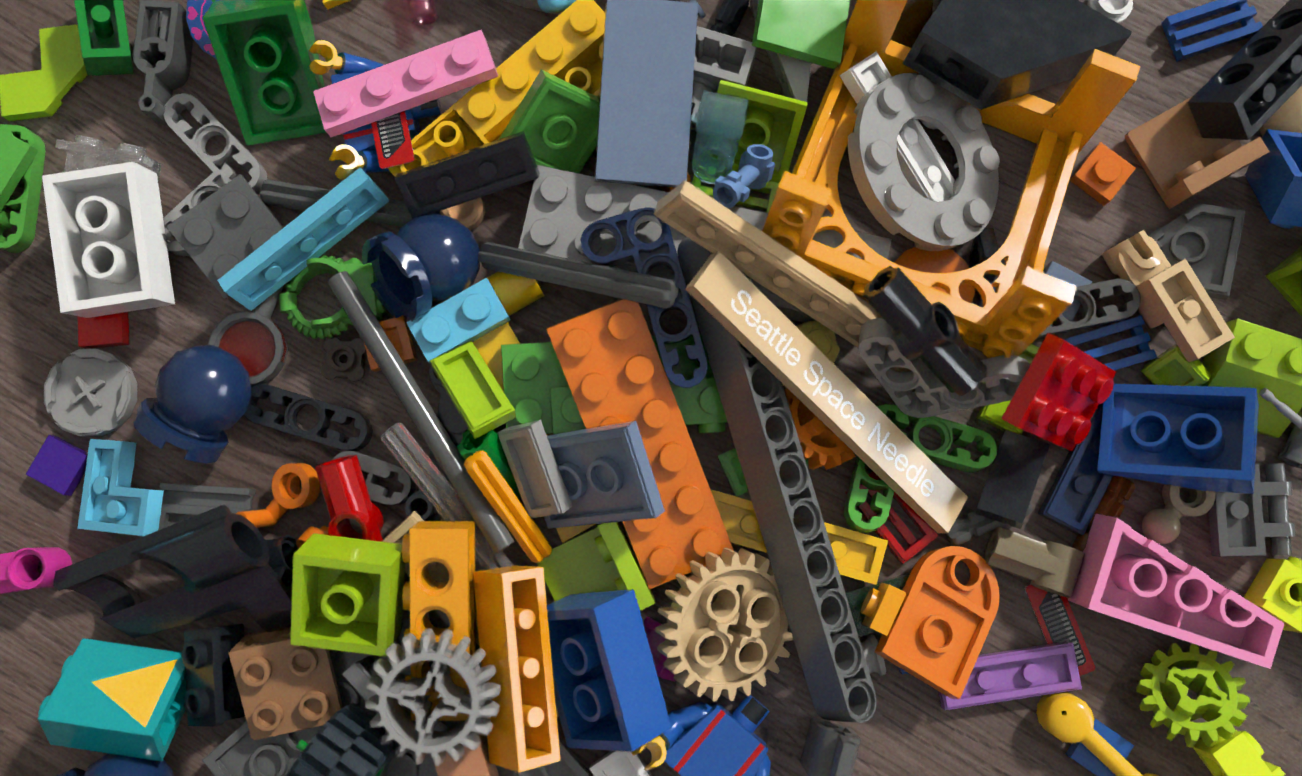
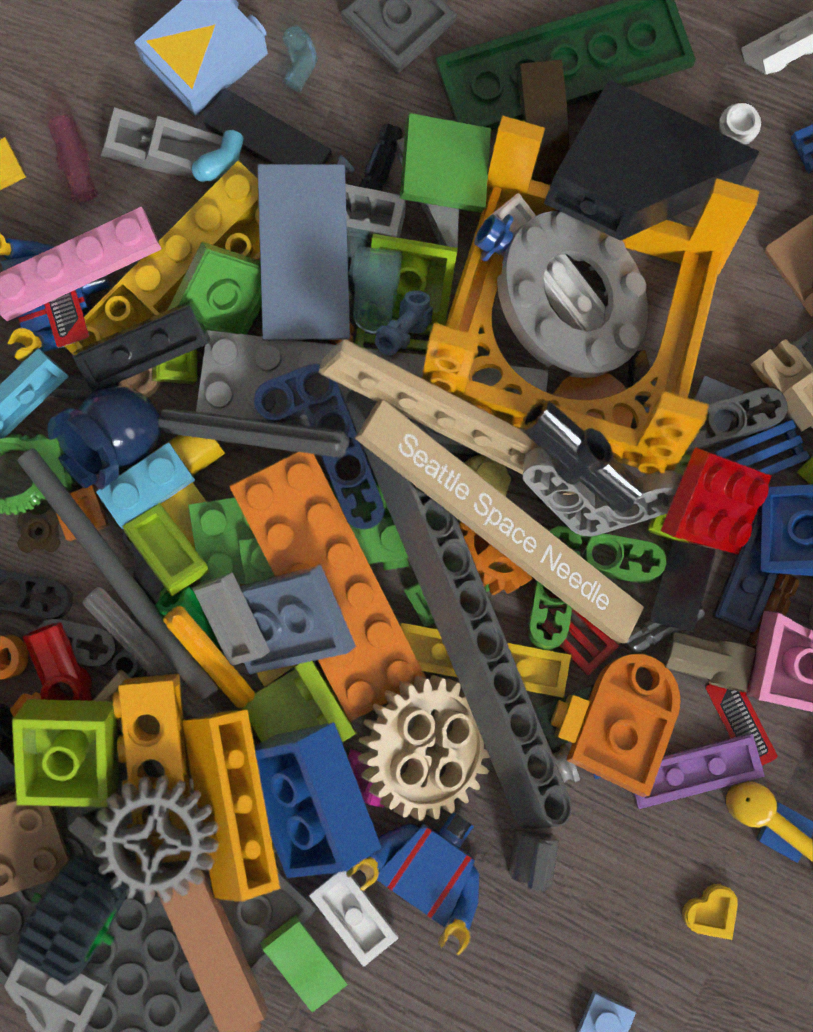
camera: 10 degrees left, 0 degrees up
(503, 204) = (177, 370): none -> lime tile
(849, 92) = (494, 236): none -> blue plate
(1102, 174) = (745, 288): orange plate -> none

